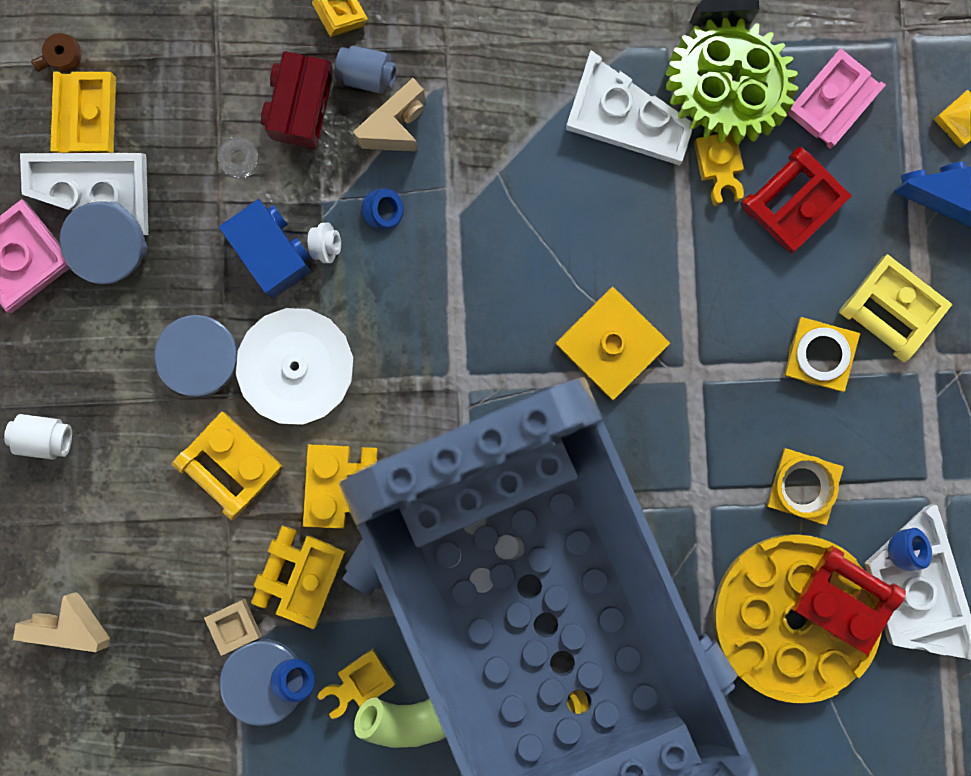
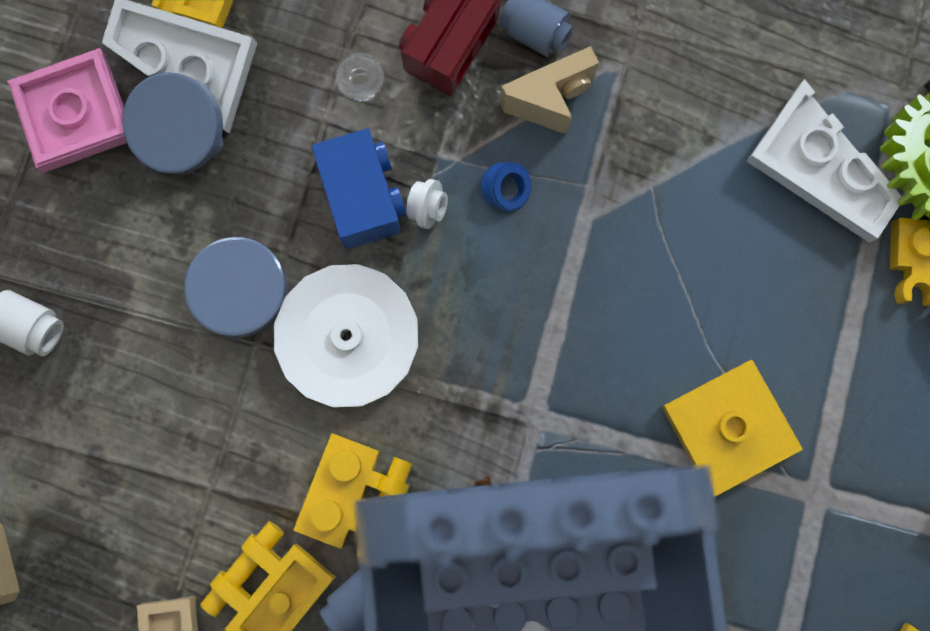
camera: 15 degrees right, 5 degrees down
(237, 454) = (244, 419): yellow plate -> none

